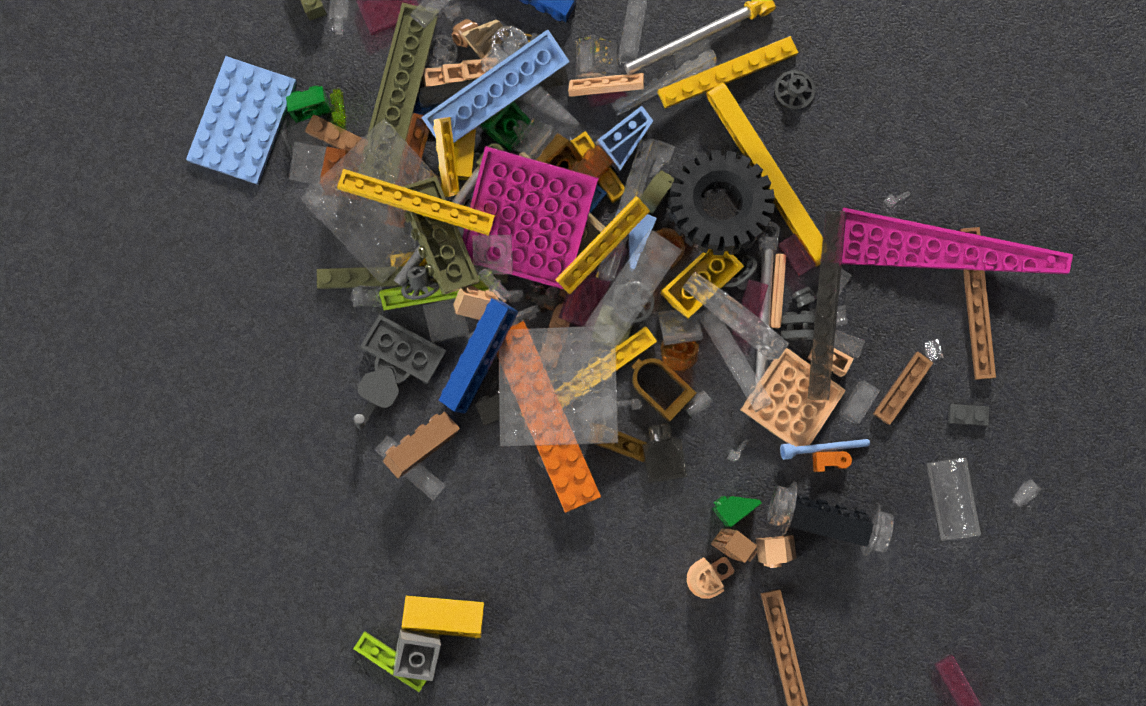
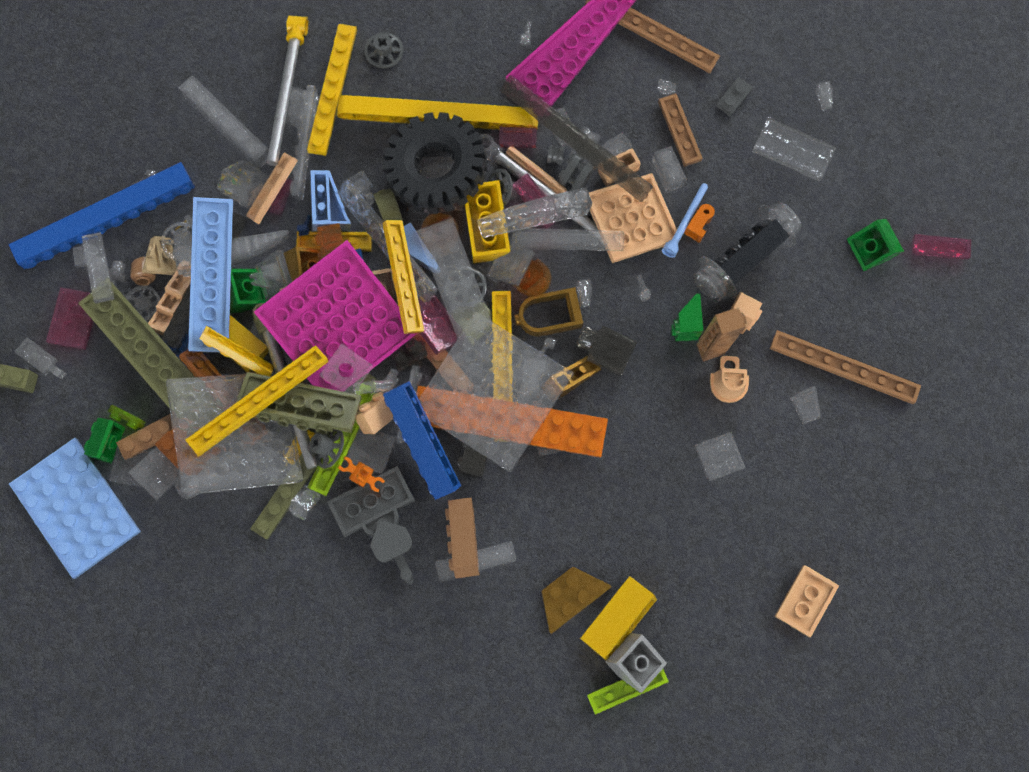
camera: 55 degrees left, 5 degrees down
(417, 326) = (361, 474): none -> orange pin
(436, 563) = (570, 595): none -> pearl gold wing
(590, 135) = (304, 228): none -> dark blue hand
(636, 612) = (719, 456): none -> clear plate
(731, 658) = (807, 405): none -> clear slope
(918, 625) = (875, 244): none -> green slope

